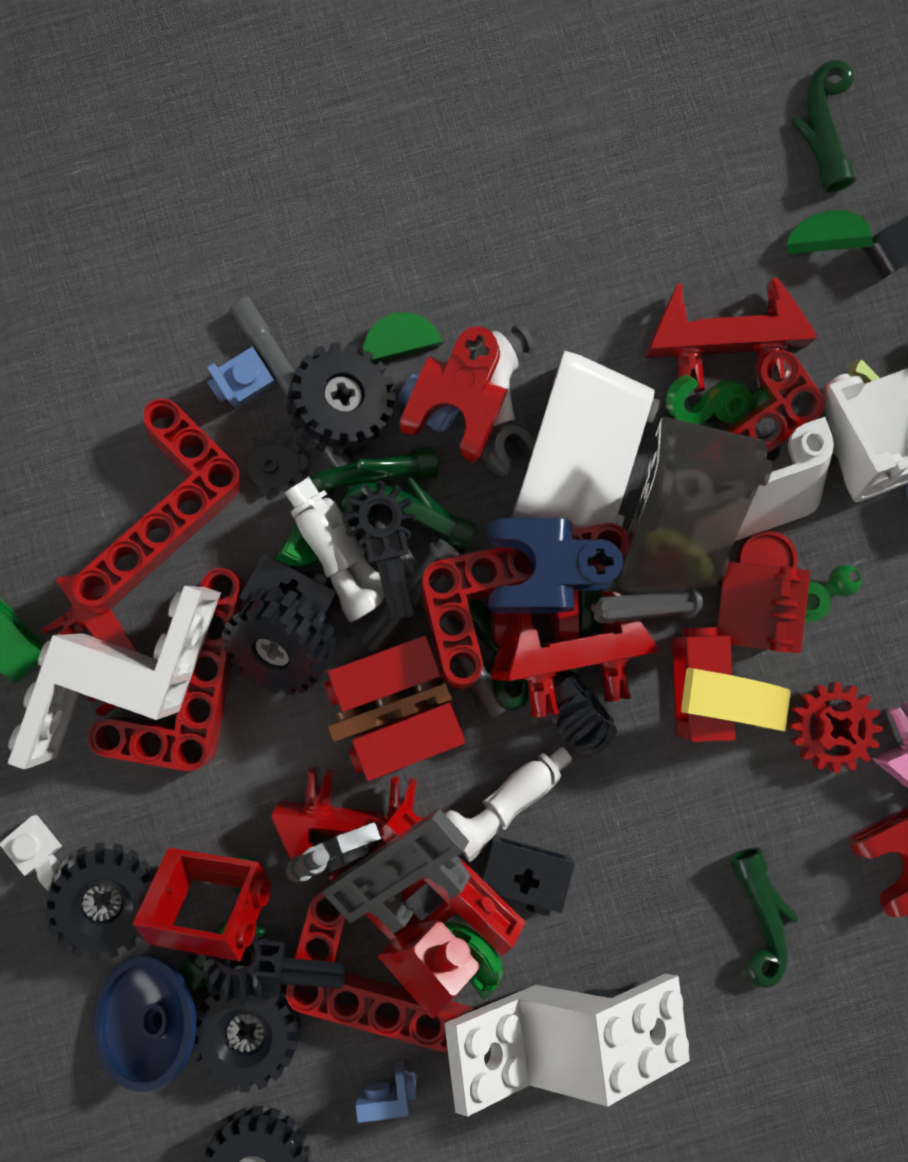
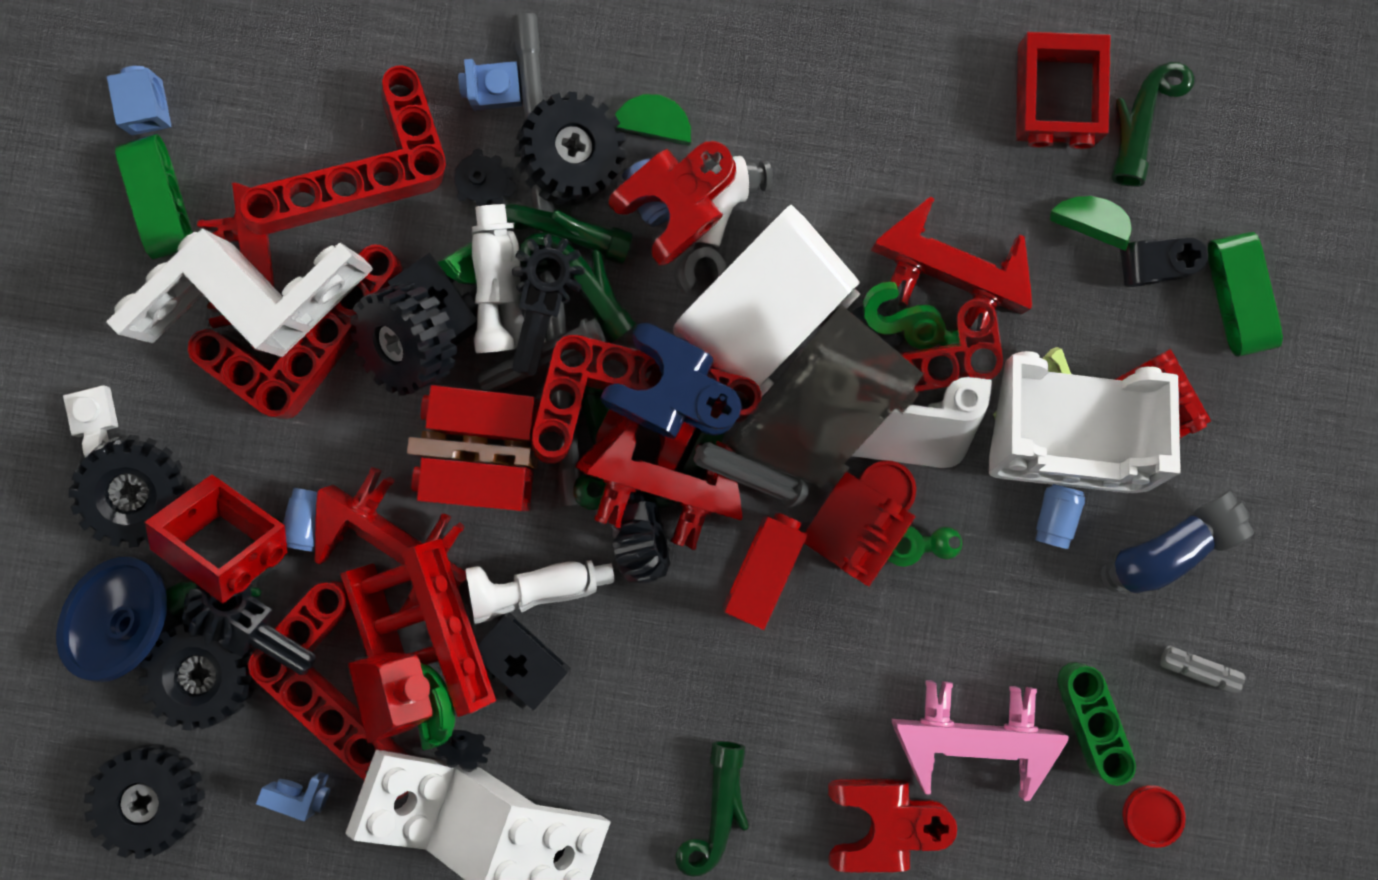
camera: 25 degrees right, 0 degrees up
(267, 846) = (301, 520): none -> medium blue piece
(335, 853) = (357, 551): dark grey plate -> none
(376, 881) = (380, 593): dark grey hinge -> none
(518, 979) = (464, 750): none -> black piece
(725, 97) = (1066, 49): none -> red window
(735, 699) = (786, 597): light yellow slope -> none
(820, 738) = (886, 666): red gear -> none

